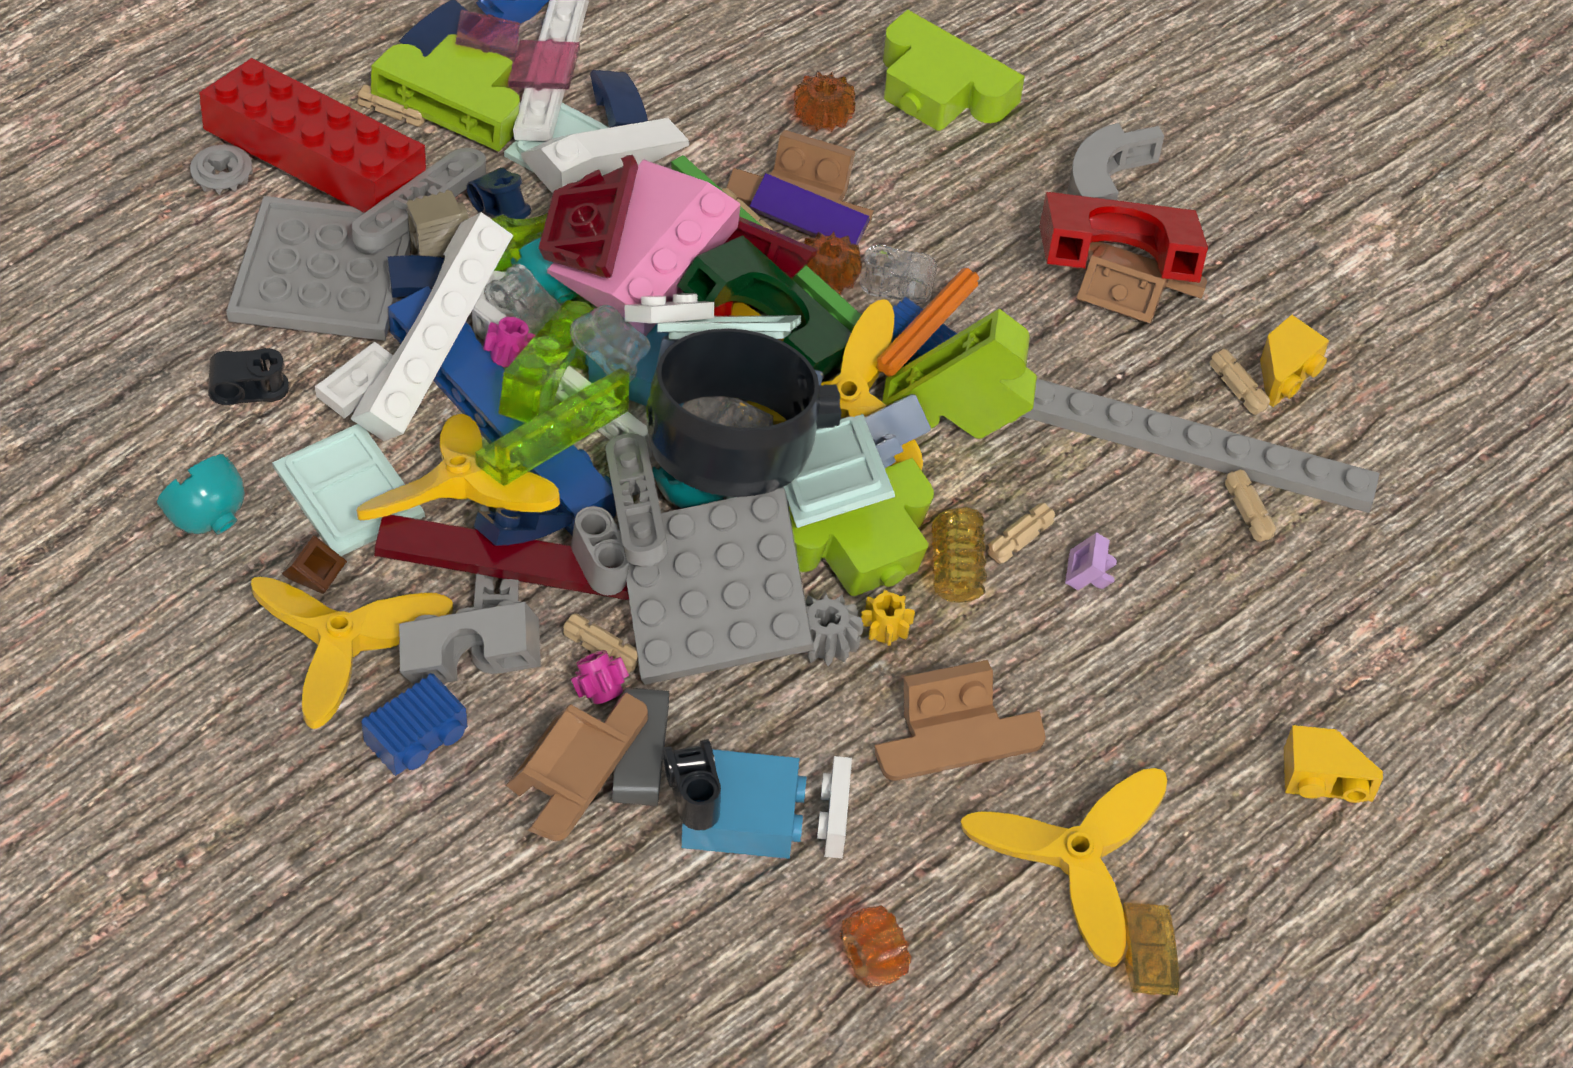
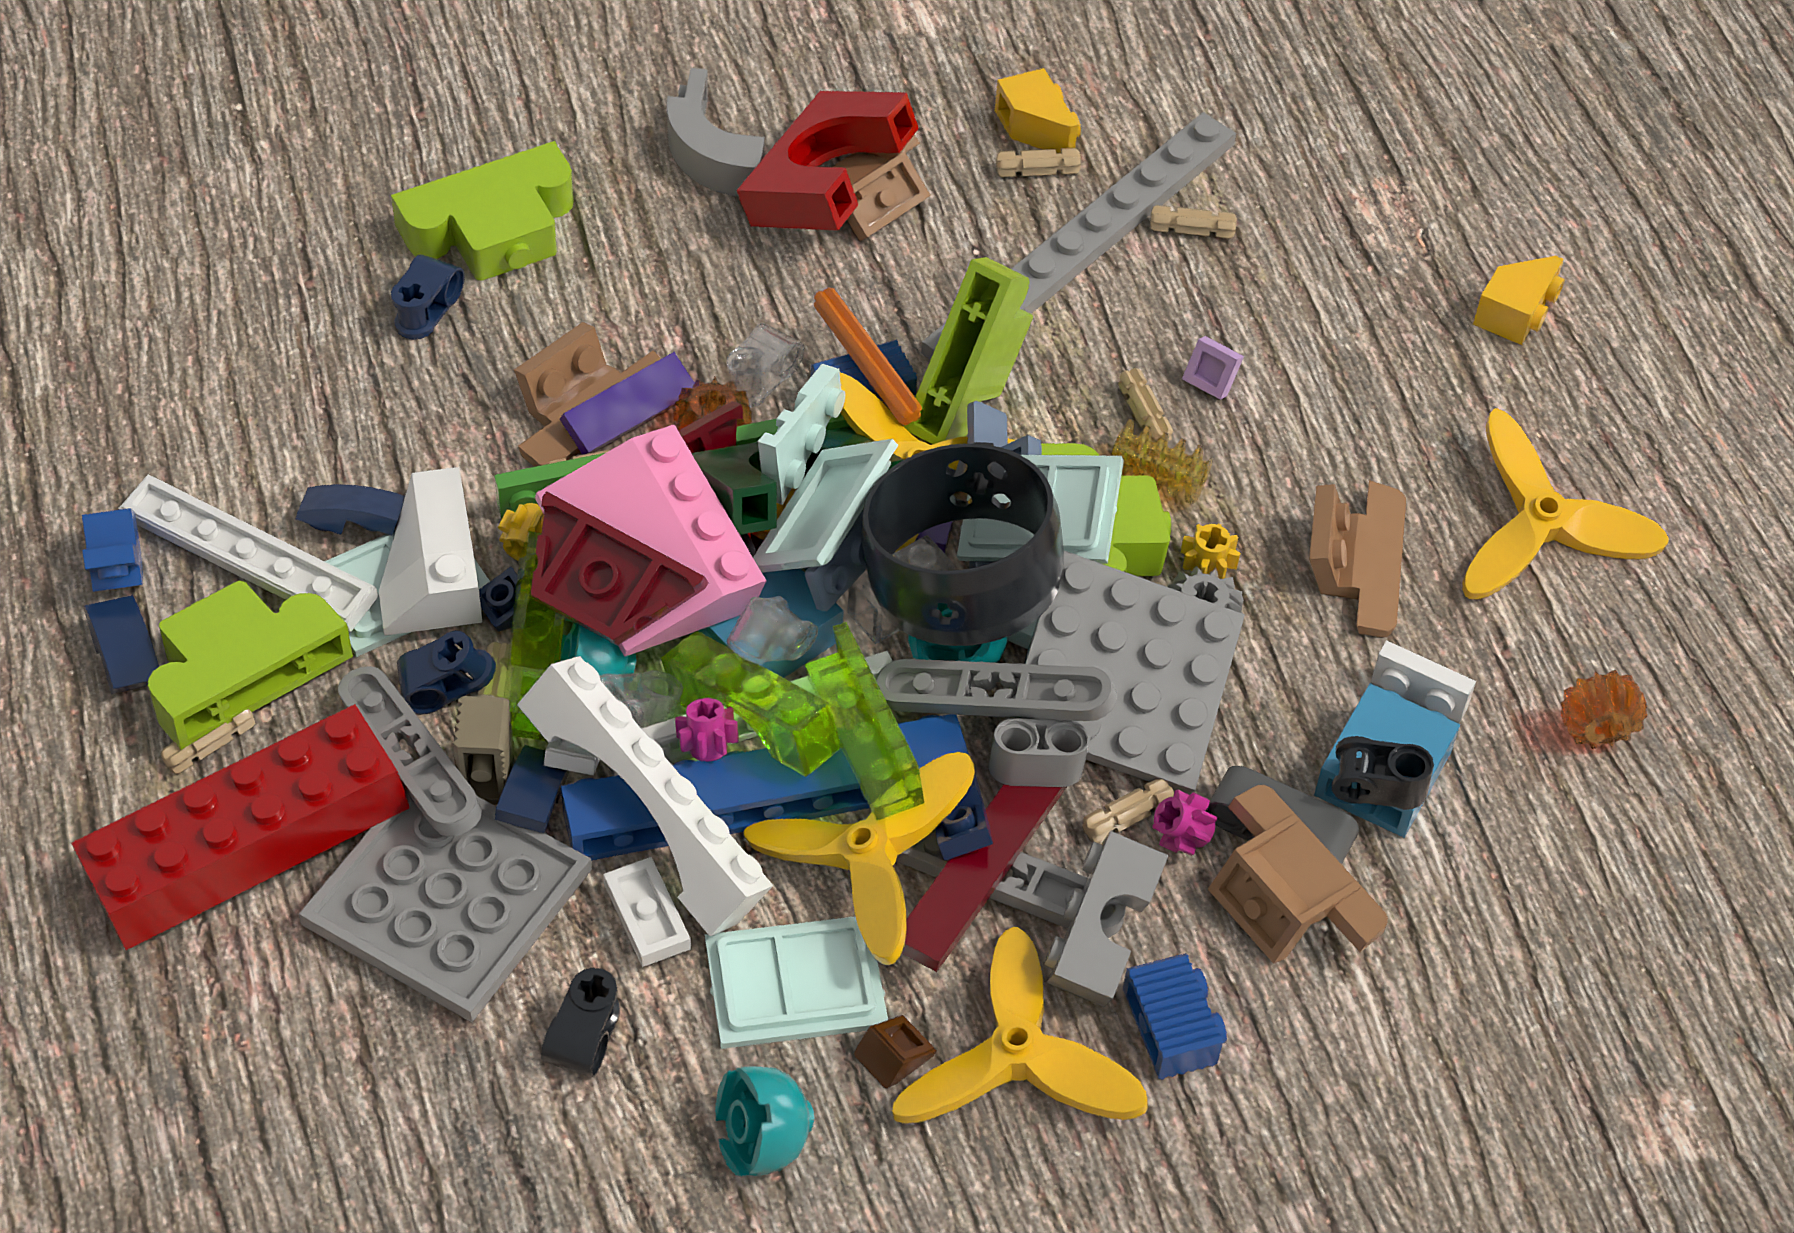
camera: 65 degrees left, 0 degrees up
(218, 158) = (217, 931): light grey gear -> none
(487, 33) = (174, 589): clear pink piece -> none
(544, 64) = (258, 553): clear pink piece -> none
(656, 309) = (779, 551): white plate -> none
(793, 289) = (802, 431): none -> light aqua wing
(824, 101) = (470, 326): clear orange gear -> none
(844, 60) = (425, 295): none -> dark blue piece
(1151, 949) = (1679, 509): clear yellow slope -> none

